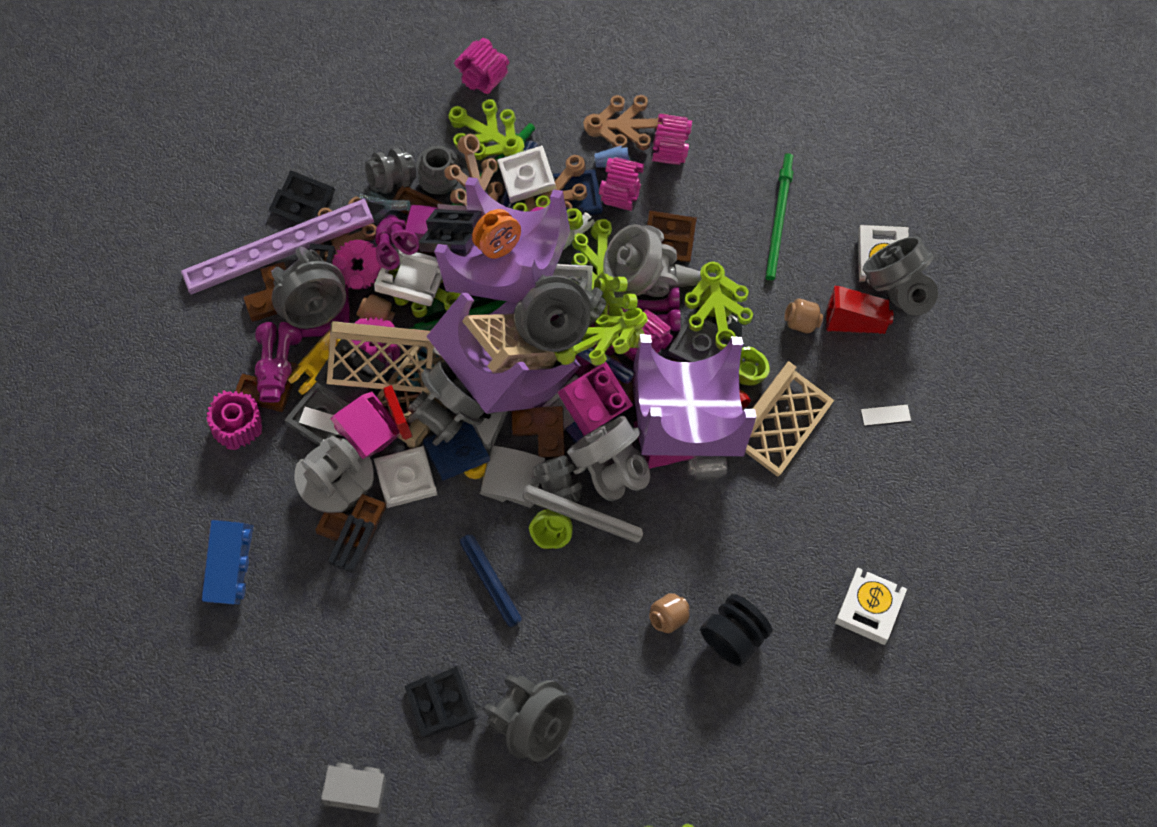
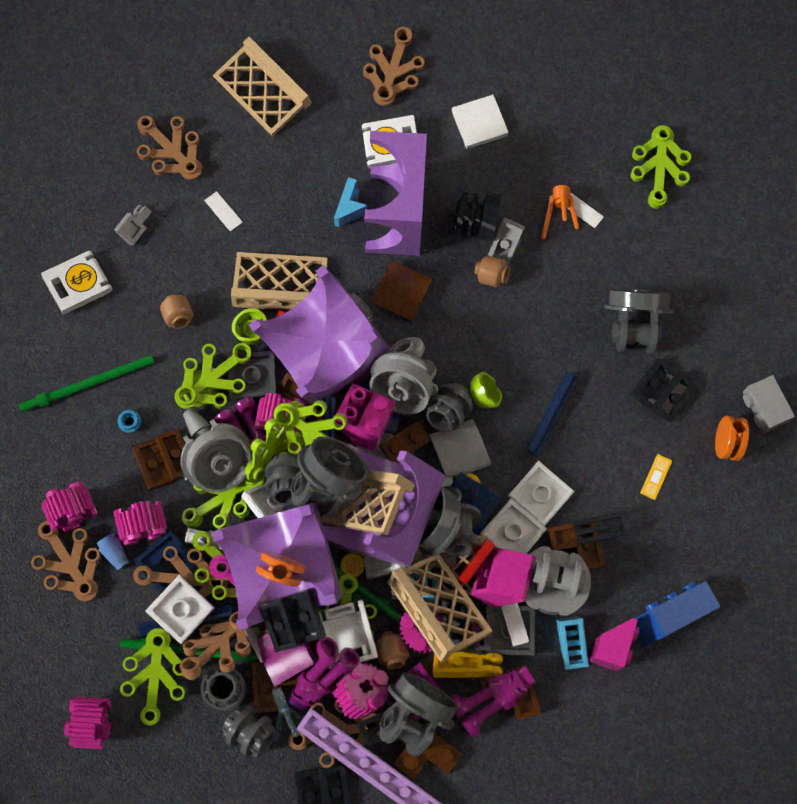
camera: 120 degrees left, 10 degrees up
(234, 419) = (574, 688): dark pink brick -> none
(239, 484) = (613, 646): none -> dark pink slope
(285, 470) = (564, 643): none -> medium azure slope
(346, 725) = (732, 438): none -> orange head
(364, 639) = (656, 476): none -> yellow sticker
(422, 522) = (541, 493): none -> white tile
(582, 513) = (463, 371): light grey axle -> none
(683, 753) = (586, 212): none -> white sticker
(691, 645) = (507, 240): none -> light grey slope
(703, 520) = (402, 290): none -> reddish brown slope
(708, 733) = (562, 199): none -> orange plant
(722, 223) = (124, 416): none -> dark azure plate
(791, 566) = (407, 177): none -> medium lavender piece
(821, 517) = (348, 207): none -> medium azure slope
(845, 710) = (480, 121): none -> white tile
(857, 312) = (149, 270): red slope -> none
(899, 272) = (97, 247): dark grey piece -> none
(913, 327) = (131, 225): none -> light grey plate
(956, 657) = (393, 70): none -> medium nougat plant
(978, 402) = (171, 150): none -> medium nougat plant
(1012, 538) = (278, 77): none -> tan fence

